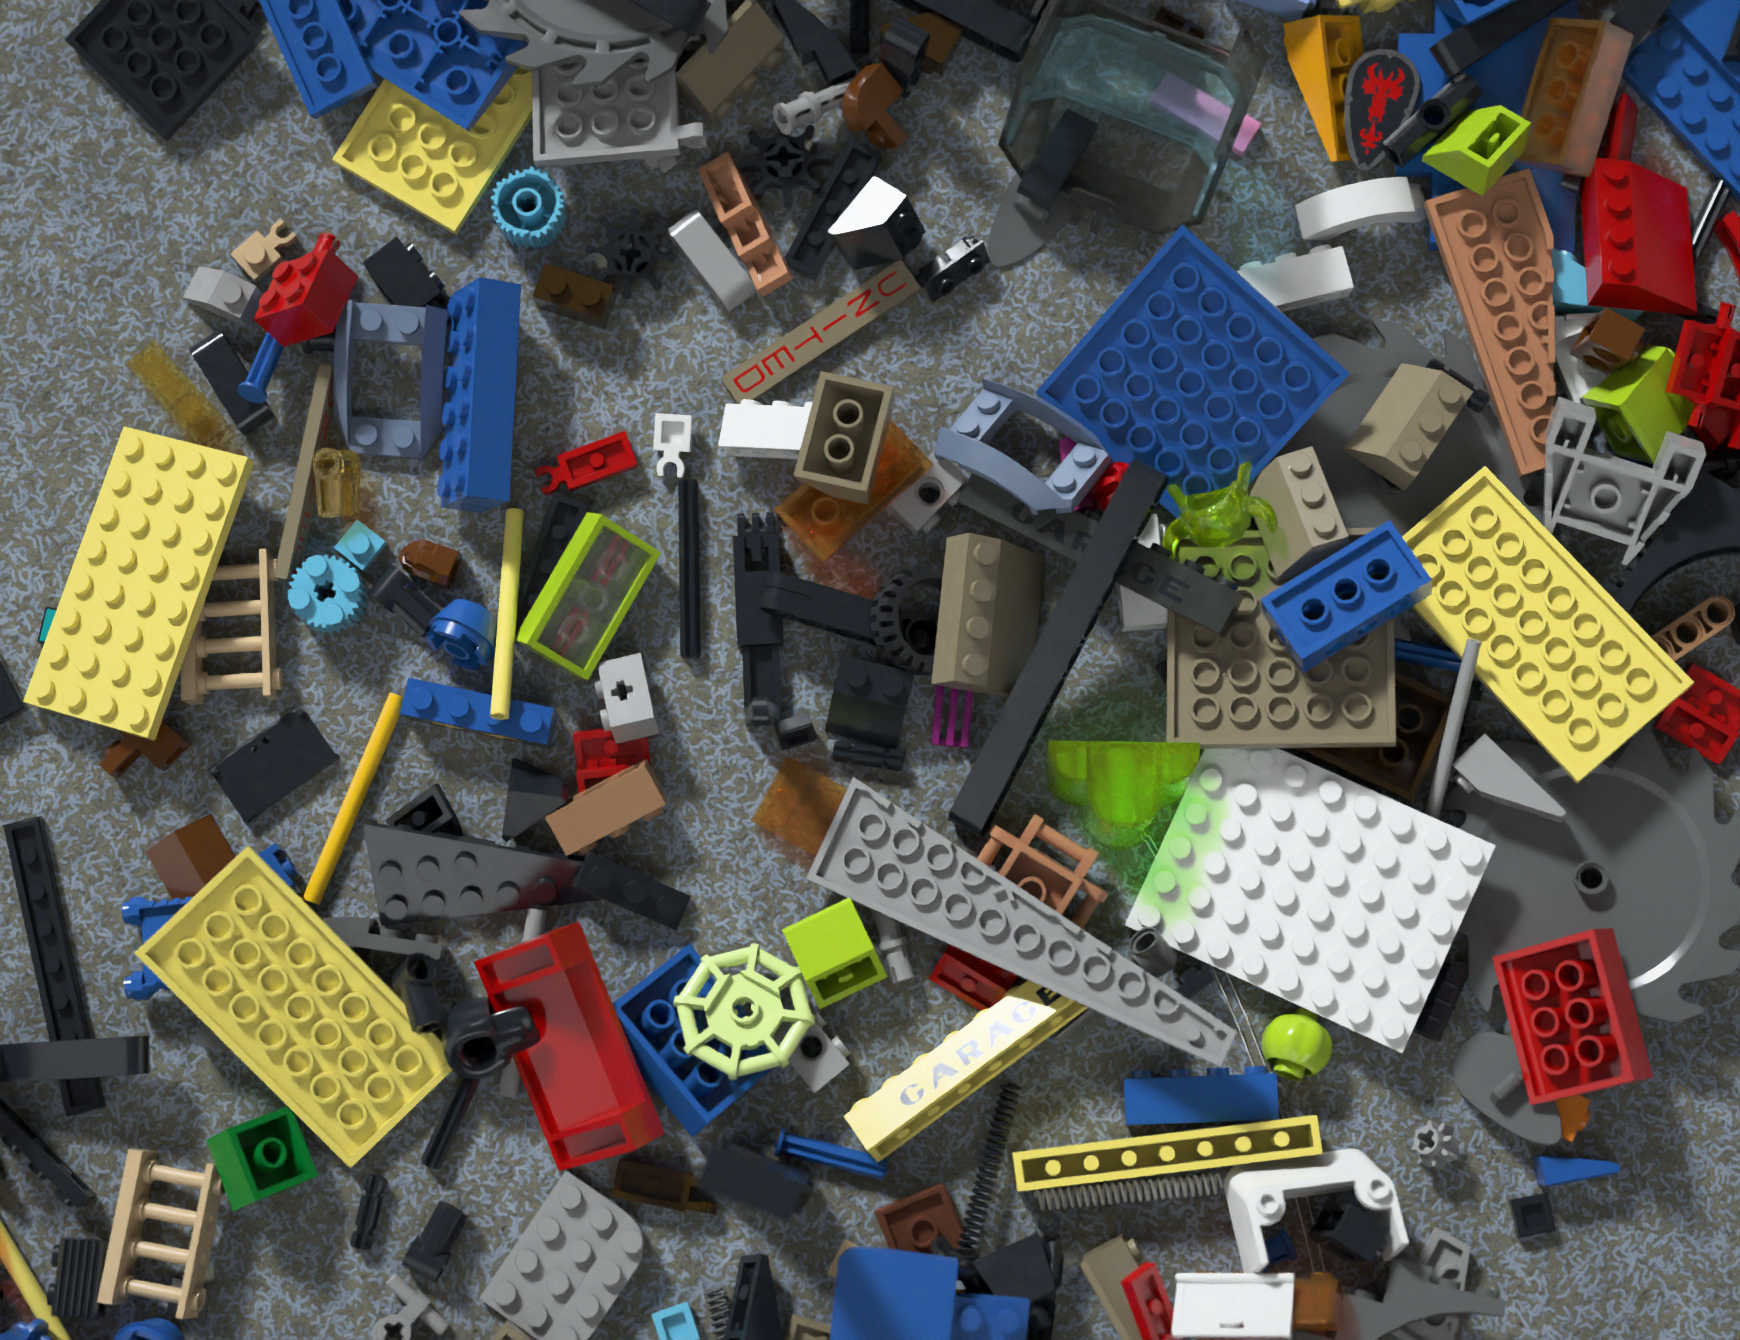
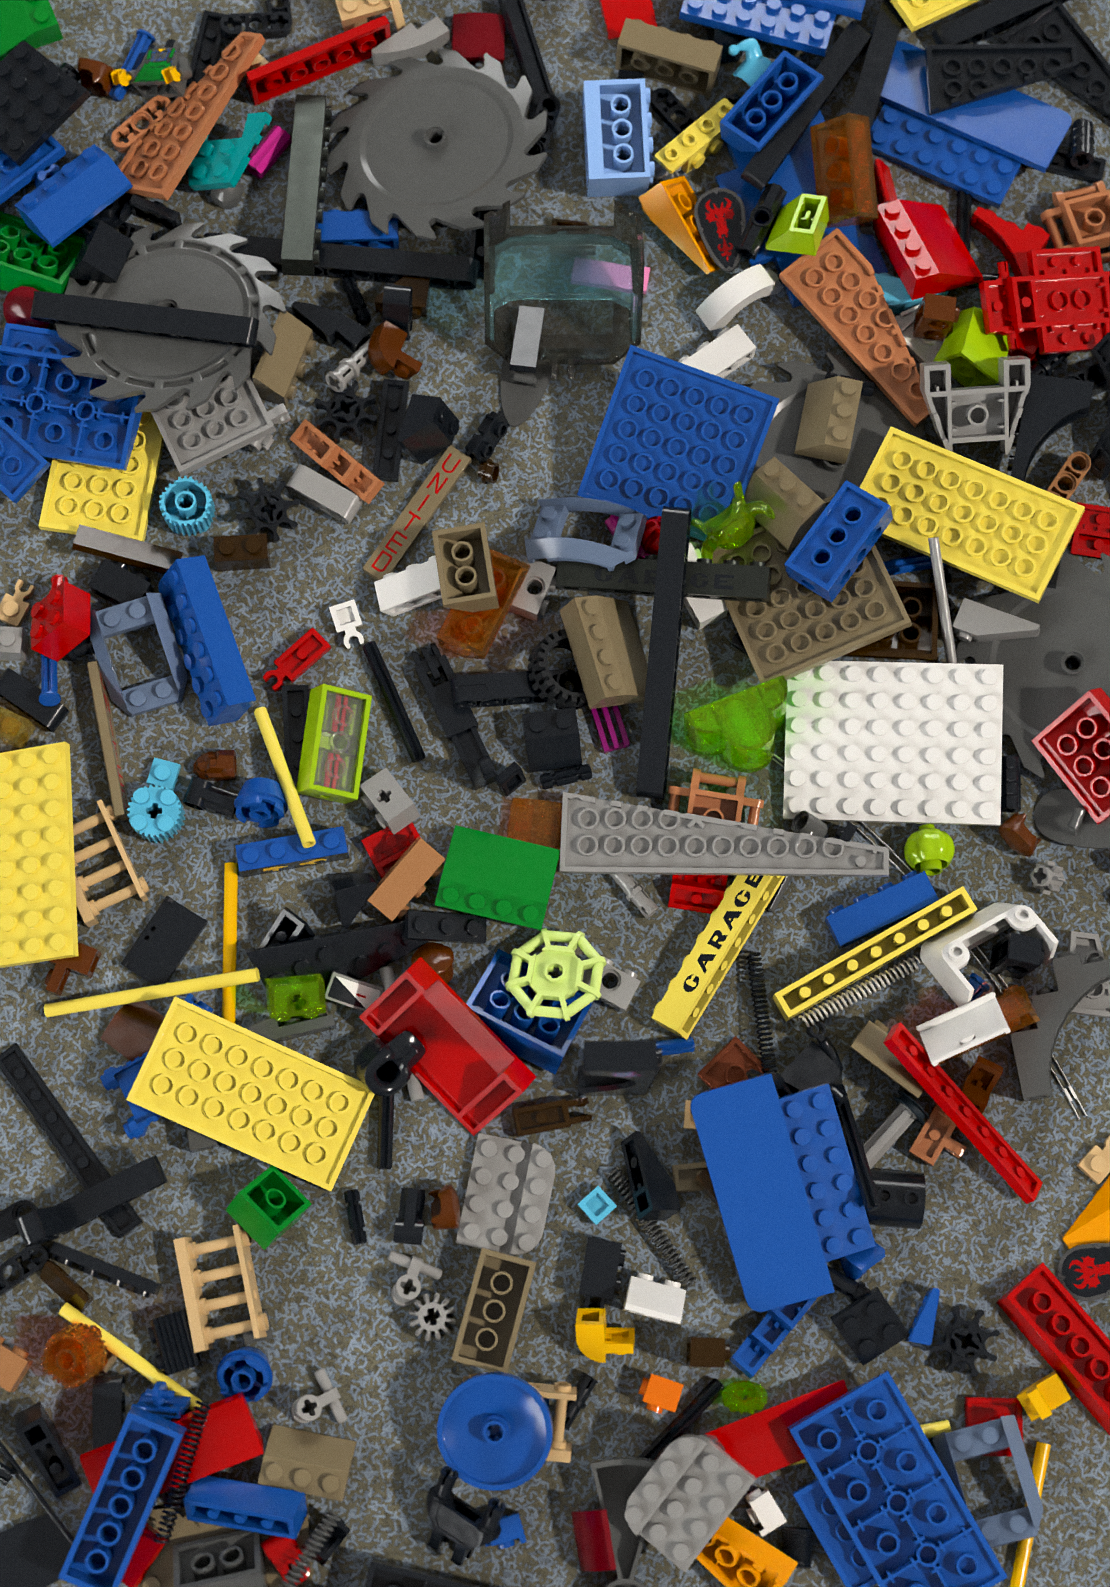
camera: 25 degrees left, 5 degrees down
(230, 823) = (152, 992): none -> light yellow piece
(339, 485) = (131, 738): clear yellow piece -> none
(391, 889) = (281, 991): none -> clear neon green brick
(419, 993) = (325, 1048): black piece -> none
(428, 234) = (124, 549): none -> tile
(480, 926) = (351, 991): none -> slope
(483, 1251) = (445, 1208): none -> reddish brown hair
(603, 928) = (438, 957): none -> reddish brown hair
(724, 854) = (498, 877): none -> green slope
(834, 953) = (599, 912): lime slope -> none
(936, 314) = (488, 471): none -> dark brown plate
(1422, 1074) = (1018, 836): none -> reddish brown hair

